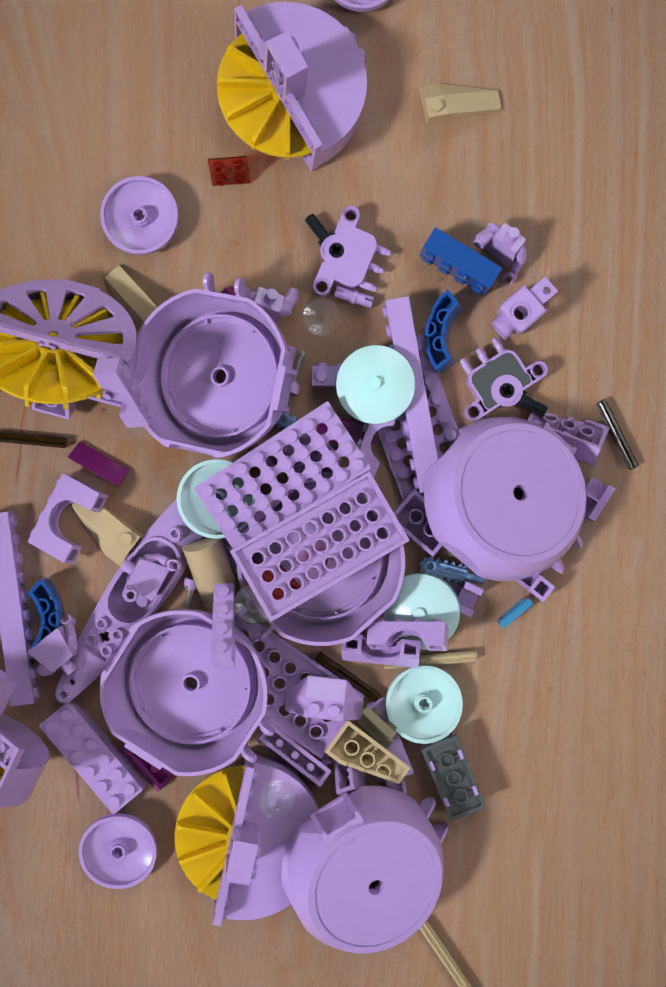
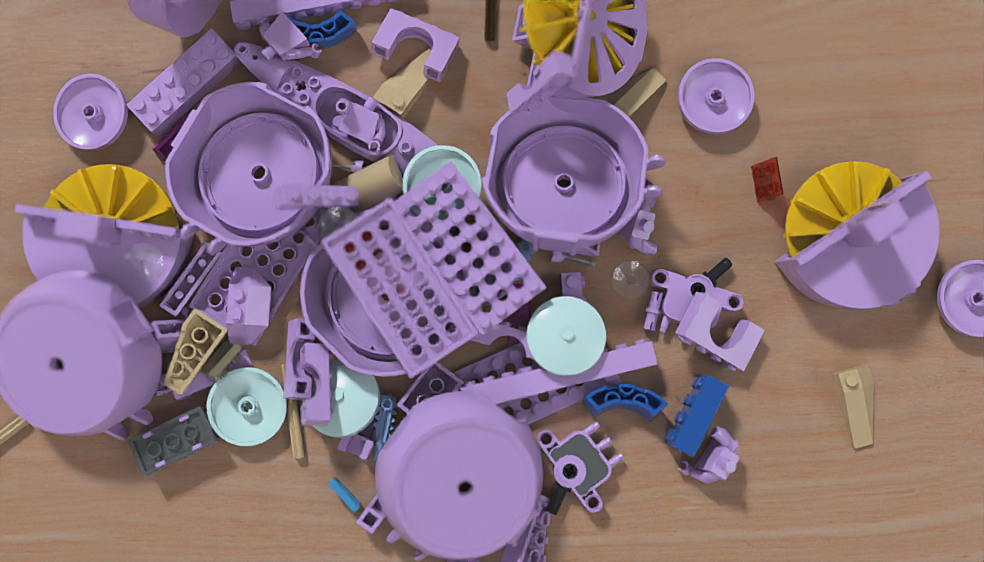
camera: 85 degrees right, 5 degrees down
(98, 463) = (470, 72): magenta slope -> none
(343, 673) = (274, 325): dark brown axle -> none
(373, 254) = (696, 330): none -> lavender arch
(528, 303) = (661, 485): lavender piece -> none

